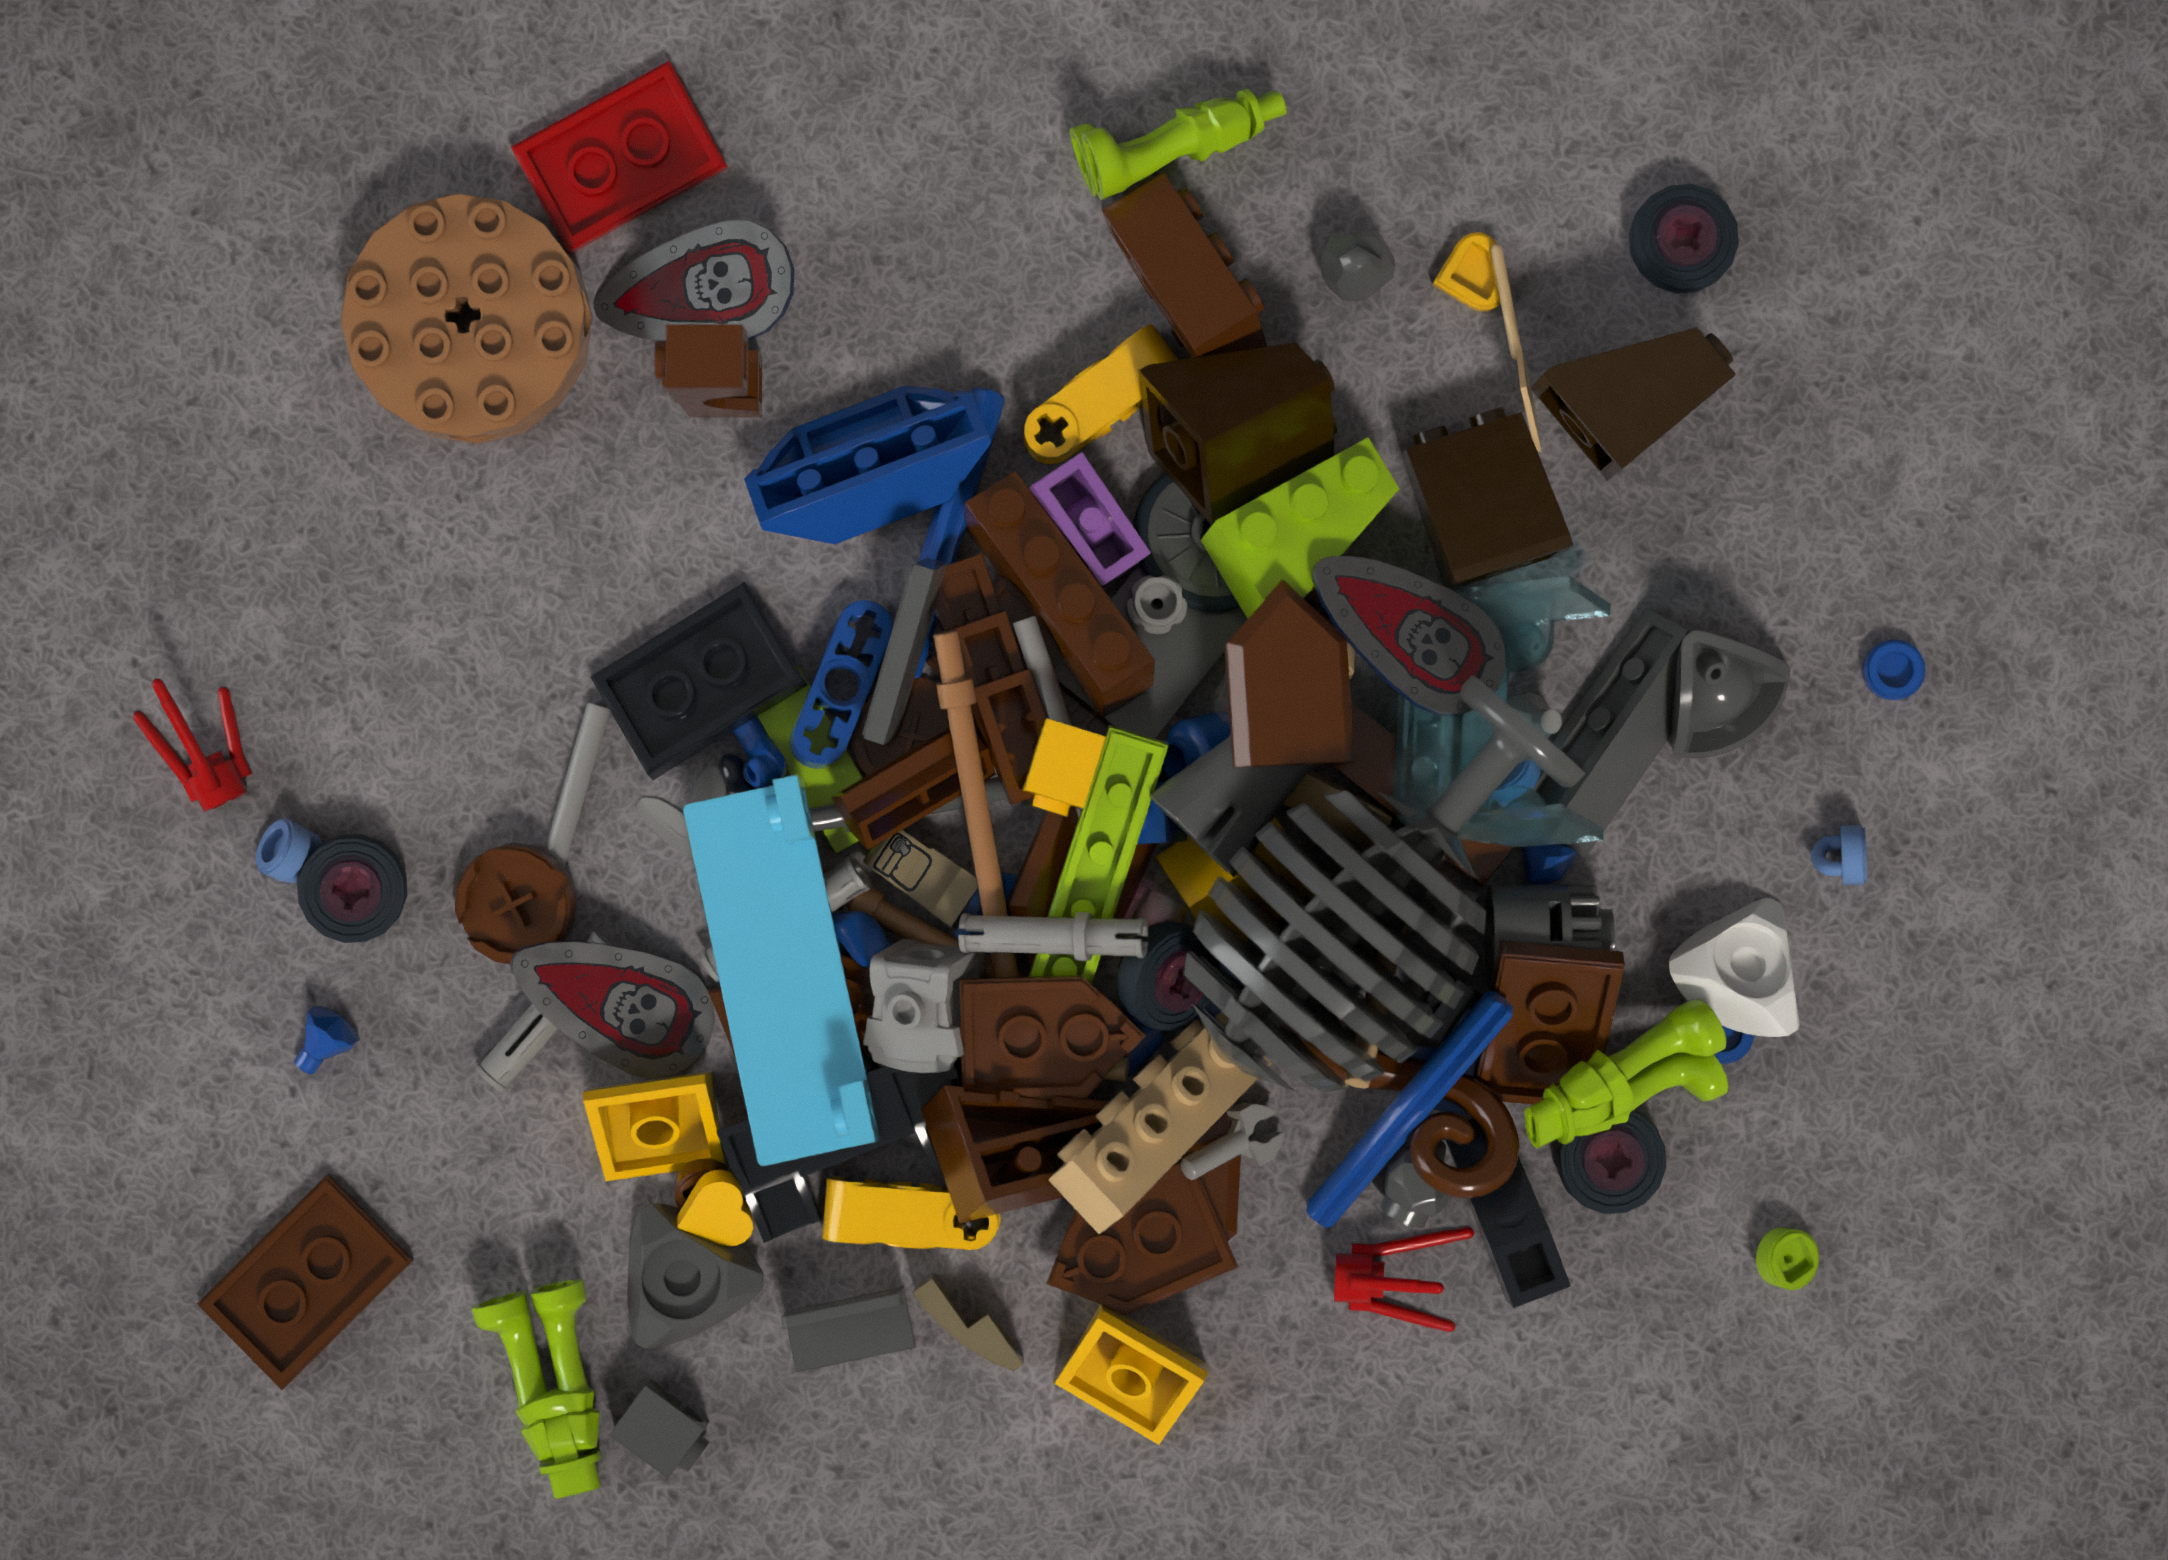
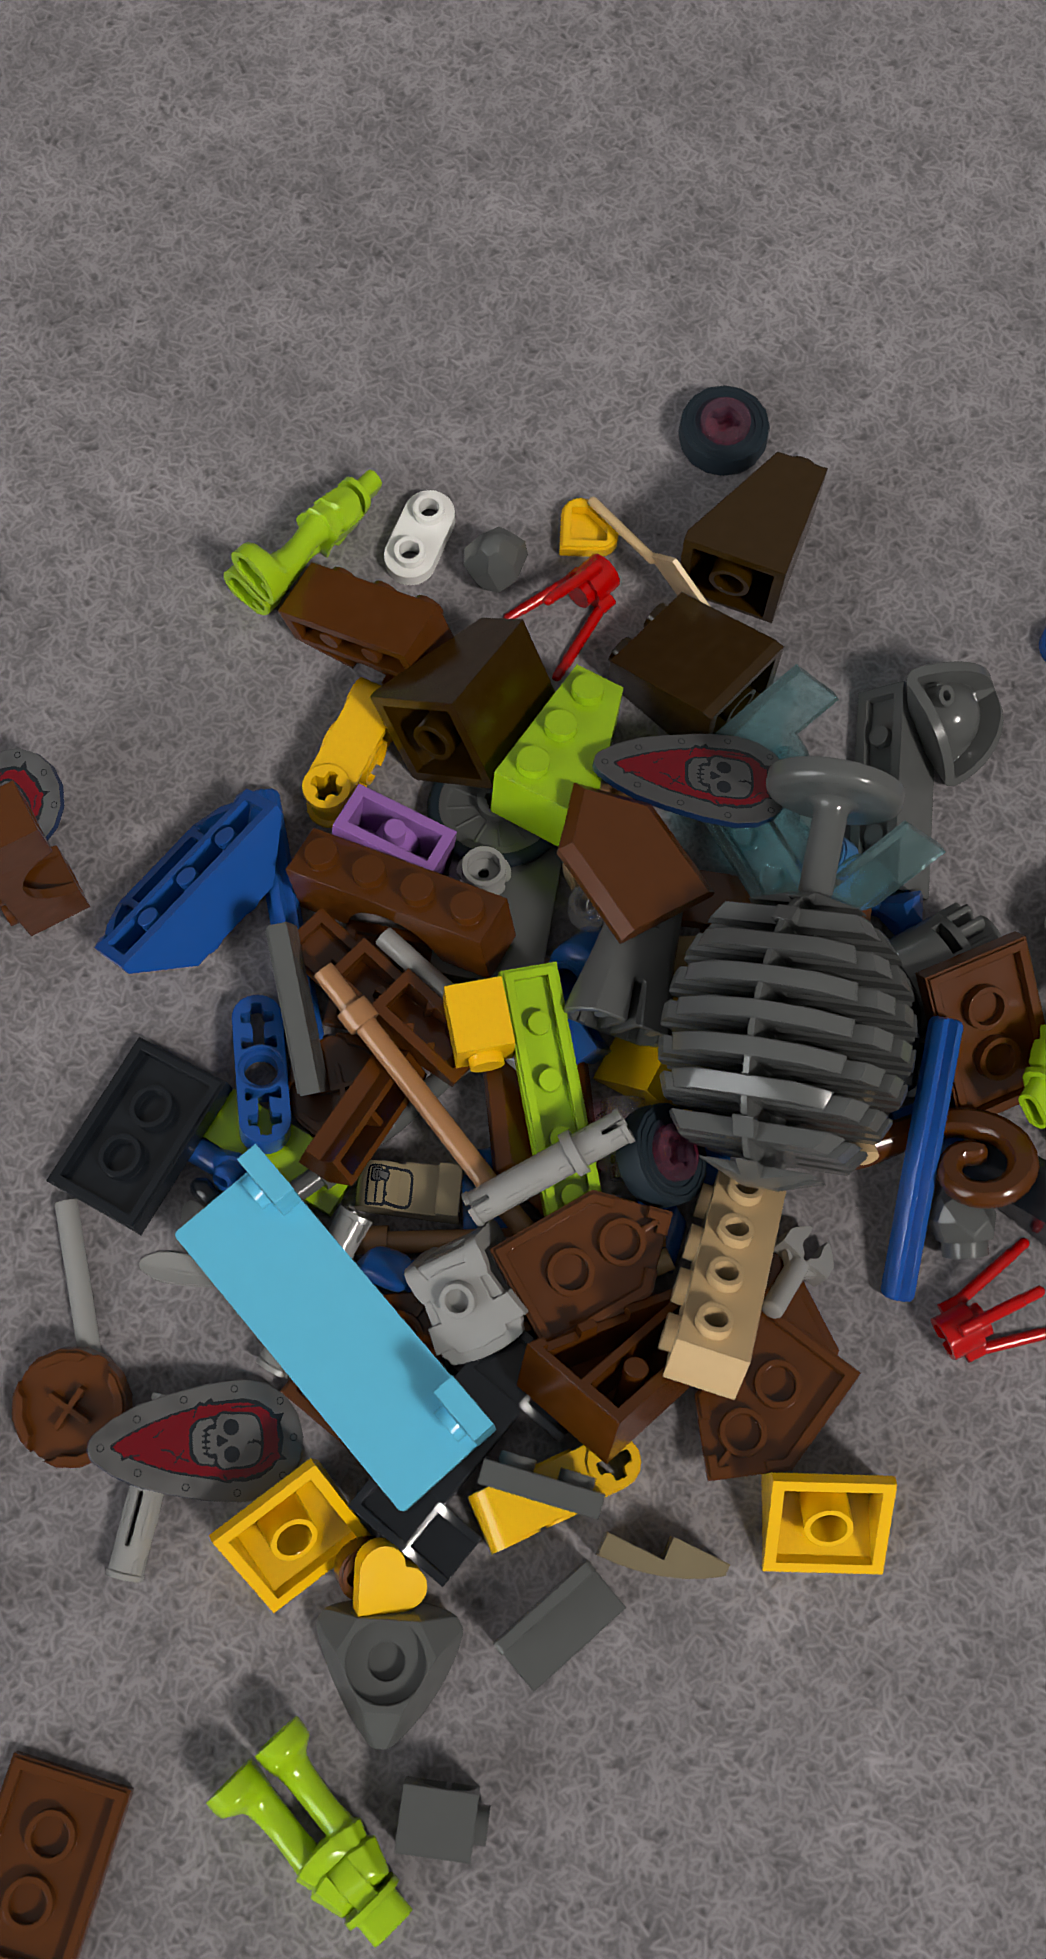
camera: 30 degrees left, 15 degrees down
(913, 1228) = (517, 1476): none -> dark grey plate
(1297, 187) = (419, 534): none -> white plate
(1438, 340) = (586, 586): none -> red plant

